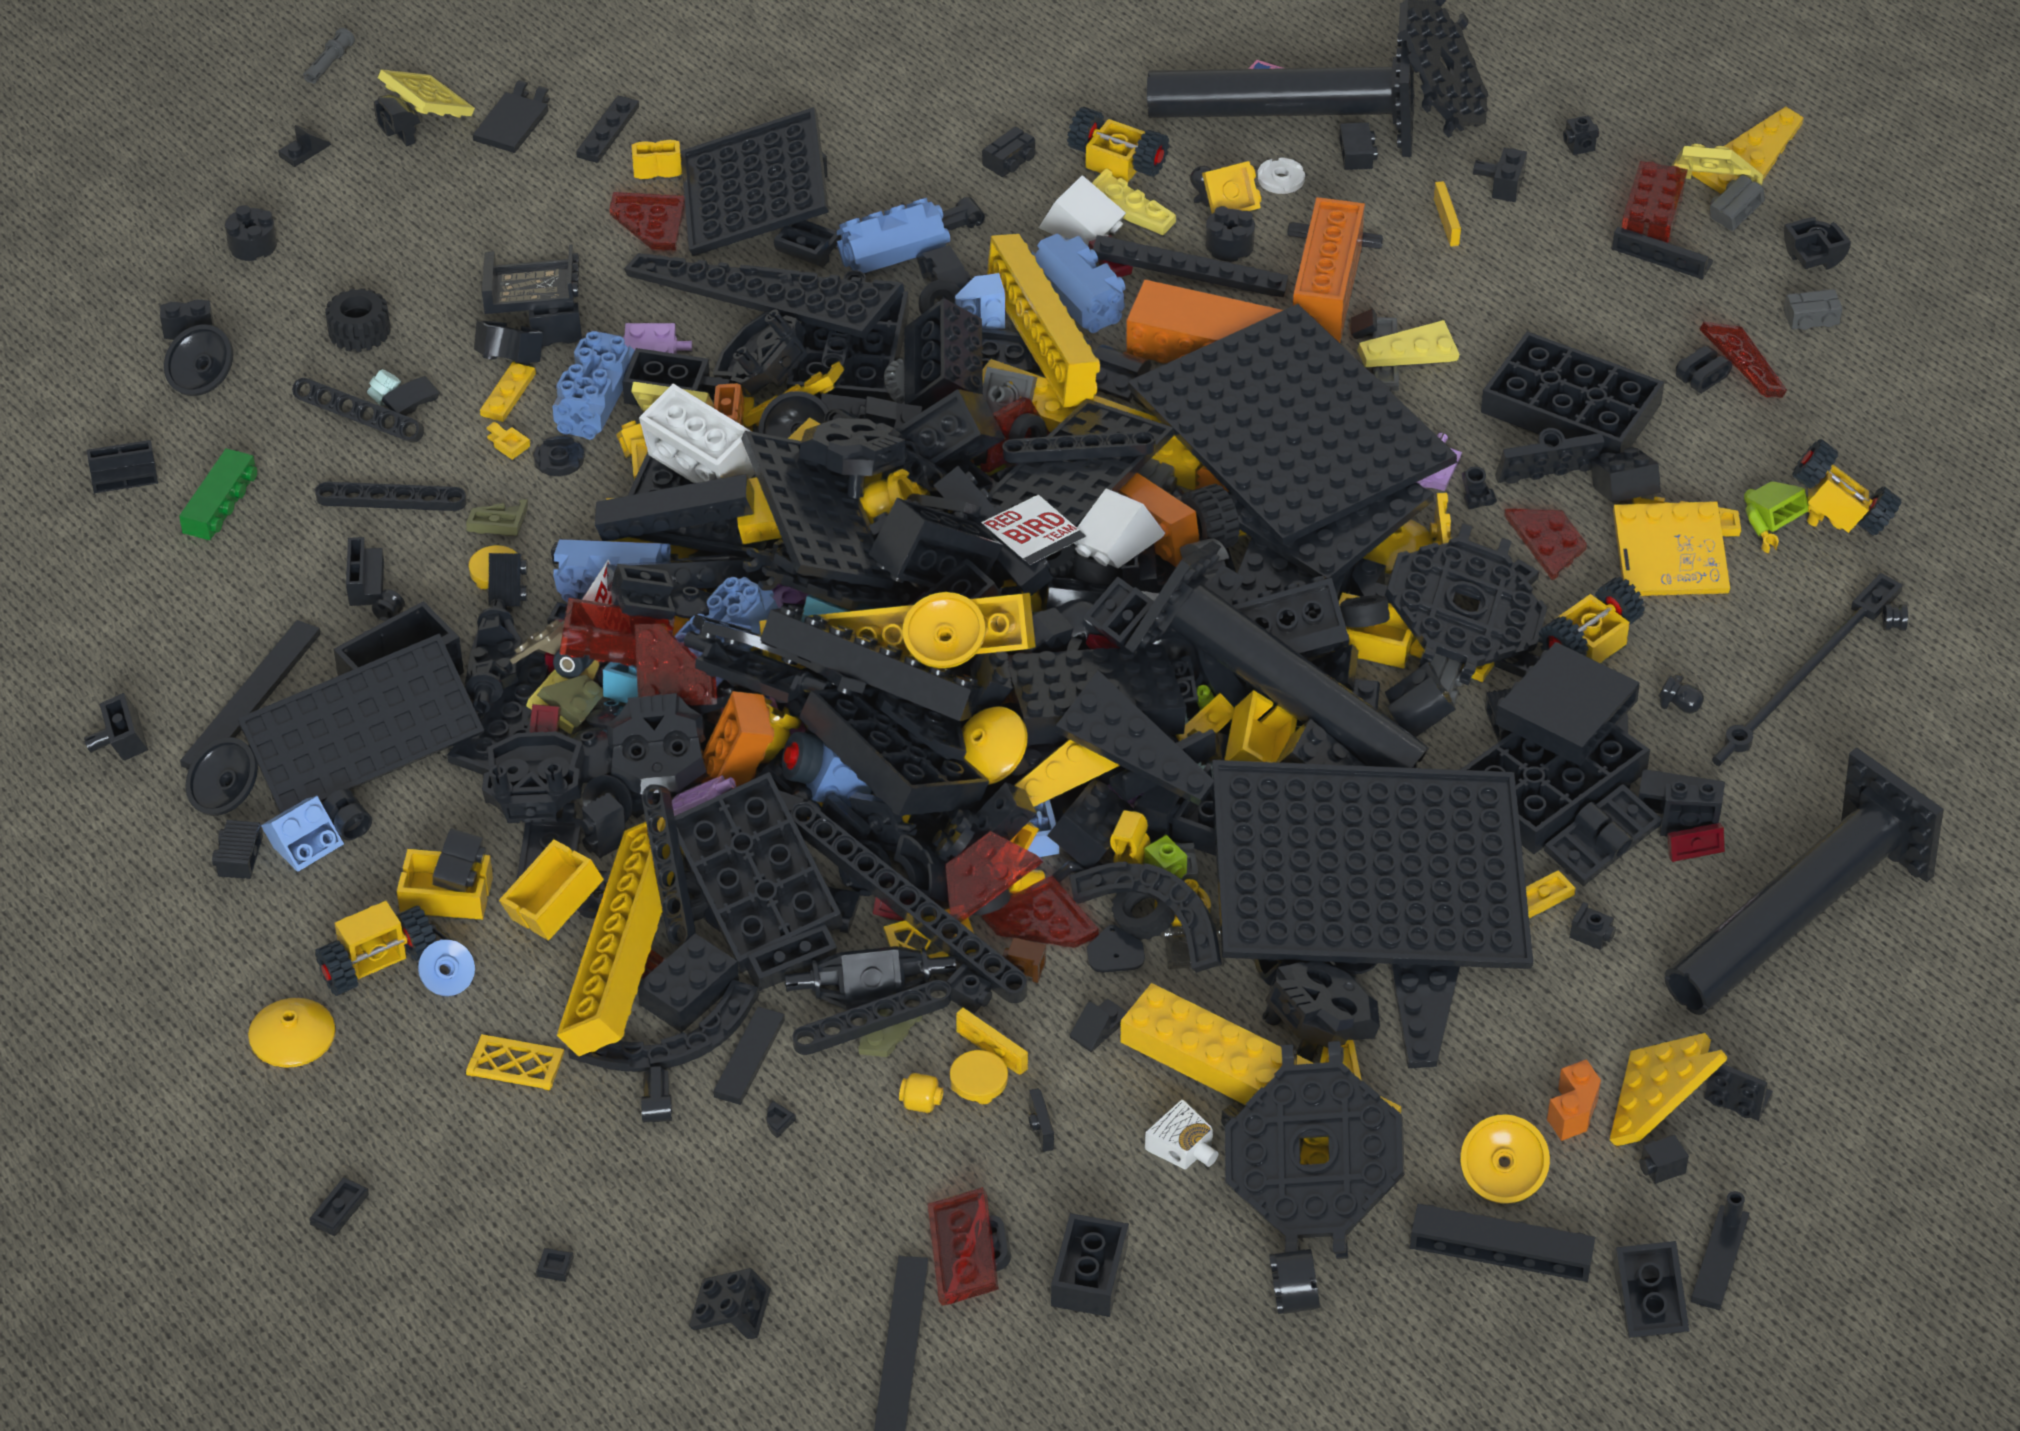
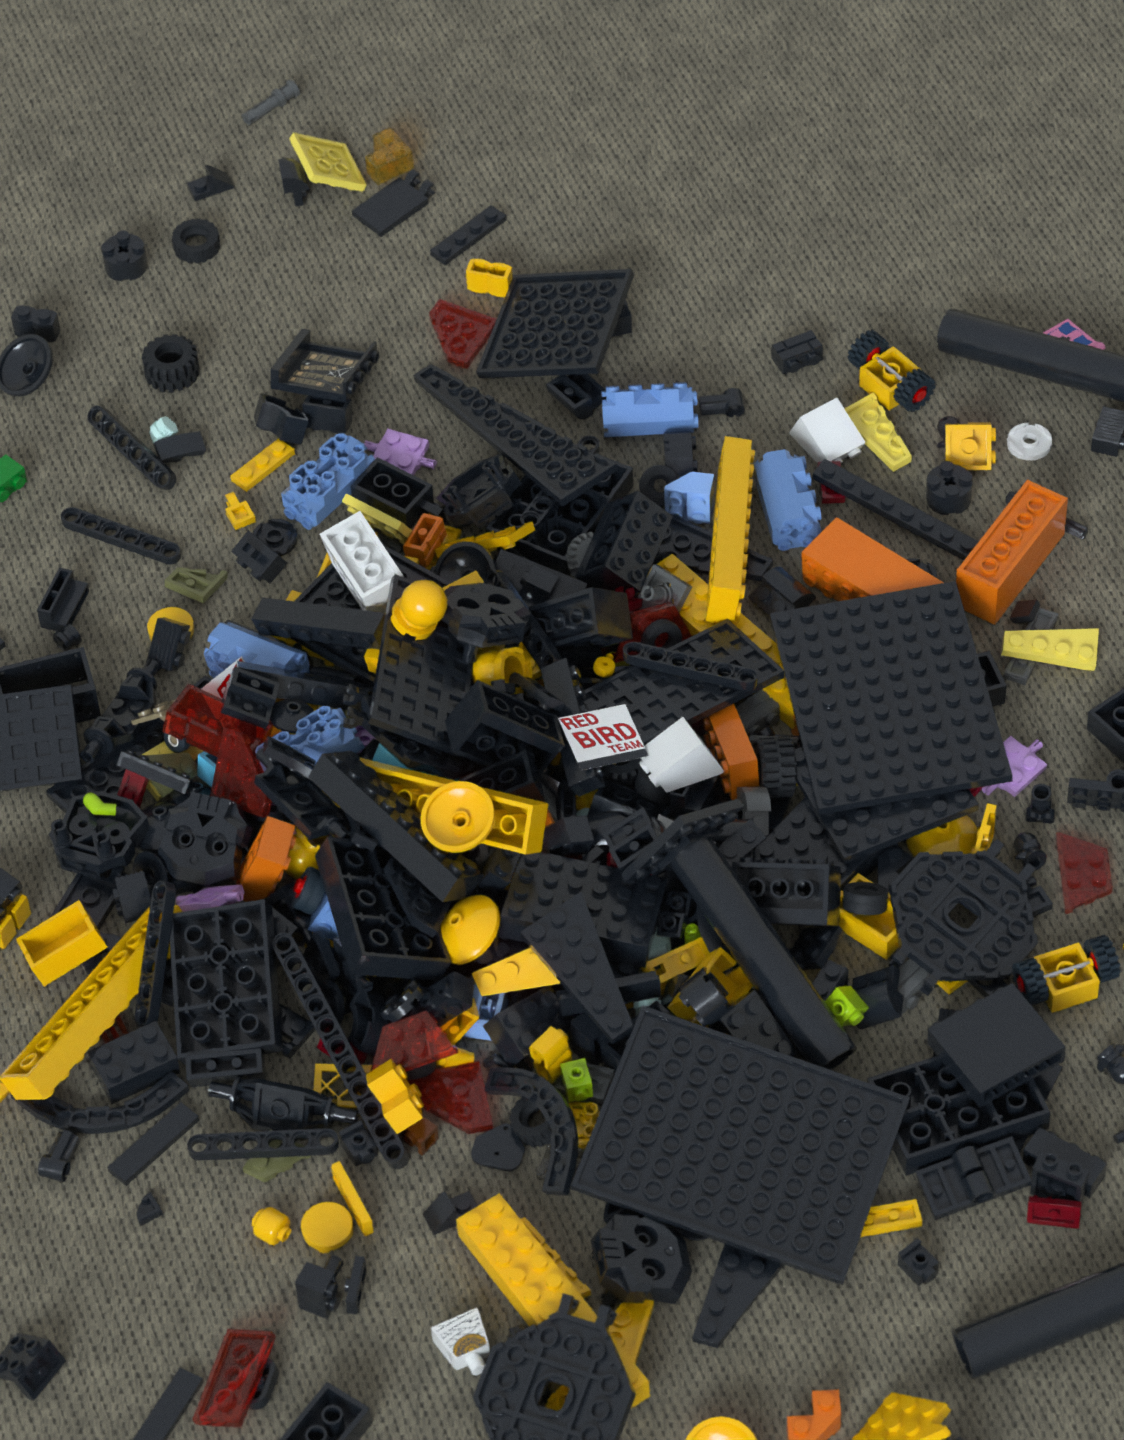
camera: 25 degrees right, 5 degrees up
(316, 189) = (192, 228): none -> black tyre
(486, 75) = (389, 158): none -> clear yellow brick
(523, 747) = (97, 806): none -> lime arm
(556, 475) = (259, 557): none -> black brick
(565, 697) = (155, 771): none -> black piece
(793, 452) = (419, 609): none -> yellow tile
(987, 473) = (604, 666): none -> yellow piece
(995, 927) = (398, 1098): none -> yellow brick
(1009, 1131) = (318, 1287): none -> black brick
(1271, 734) = (706, 997): none -> black brick
(1400, 712) = (846, 1006): none -> lime brick
(1489, 530) = (1029, 850): none -> black animal

